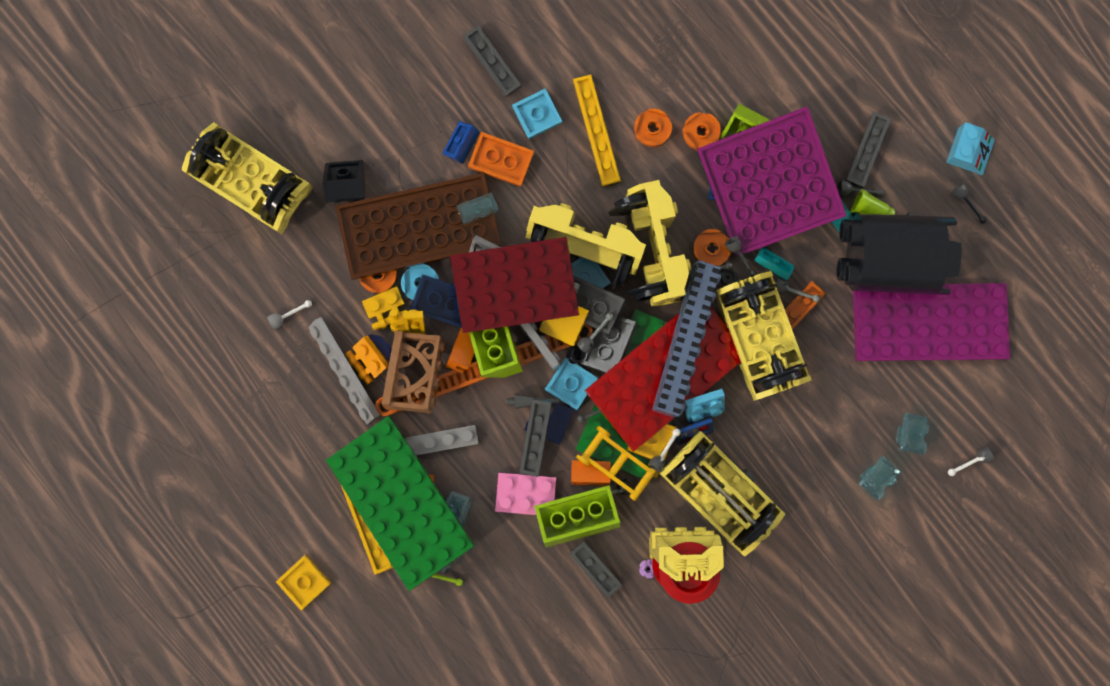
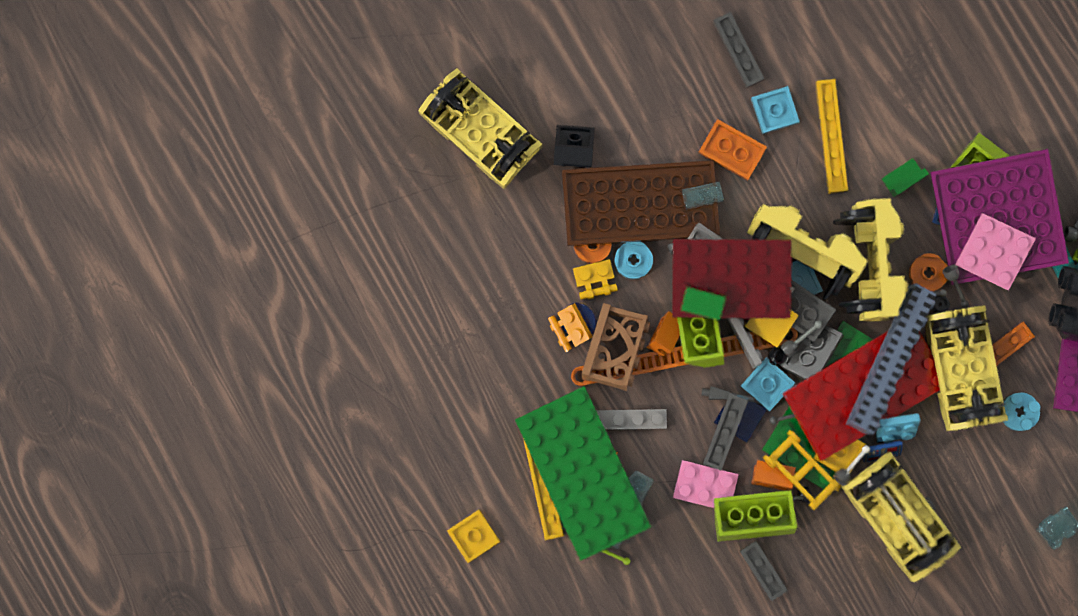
camera: 10 degrees right, 0 degrees up
(277, 320) = (486, 273): hinge -> none
(343, 370) = (545, 334): light grey plate -> none
(410, 322) = (620, 298): yellow plate -> none
(437, 300) = (650, 281): dark blue plate -> none
(461, 142) = (694, 125): blue slope -> none
(488, 314) = (703, 303): none -> green panel
(643, 568) = (810, 579): lavender plate -> none
(655, 138) = (891, 153): orange plate -> none
(673, 159) = (904, 177): none -> green panel
(686, 562) = (858, 575): light yellow piece -> none
(701, 120) = (937, 143): orange plate -> none
(772, 216) = (995, 251): none -> bright pink plate
(774, 263) = (989, 298): teal plate -> none
(783, 287) = (995, 323): hinge -> none
(832, 363) = (1030, 407): none -> medium azure plate

